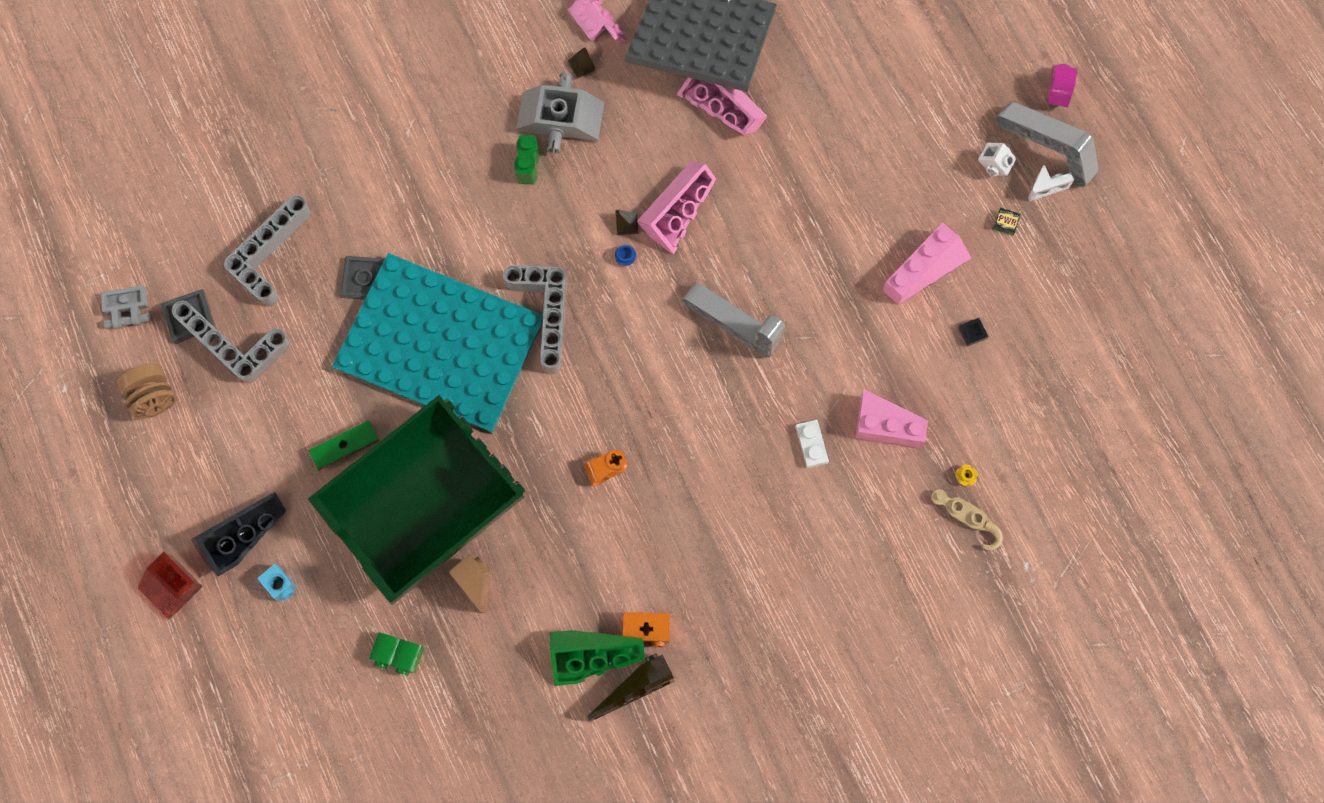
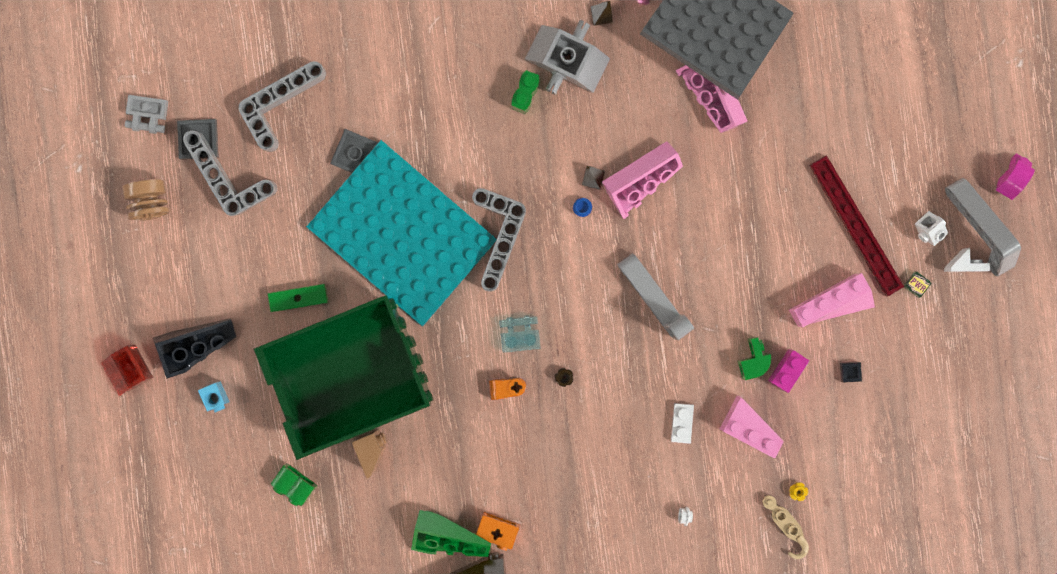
camera: 15 degrees right, 15 degrees up
(604, 411) = (519, 340): none -> clear light blue plate
(665, 430) = (559, 377): none -> dark brown plate
(851, 542) = (685, 516): none -> white plate
(869, 351) = (757, 364): none -> green brick
(905, 349) = (788, 370): none -> dark pink brick
(920, 184) = (856, 226): none -> dark red tile

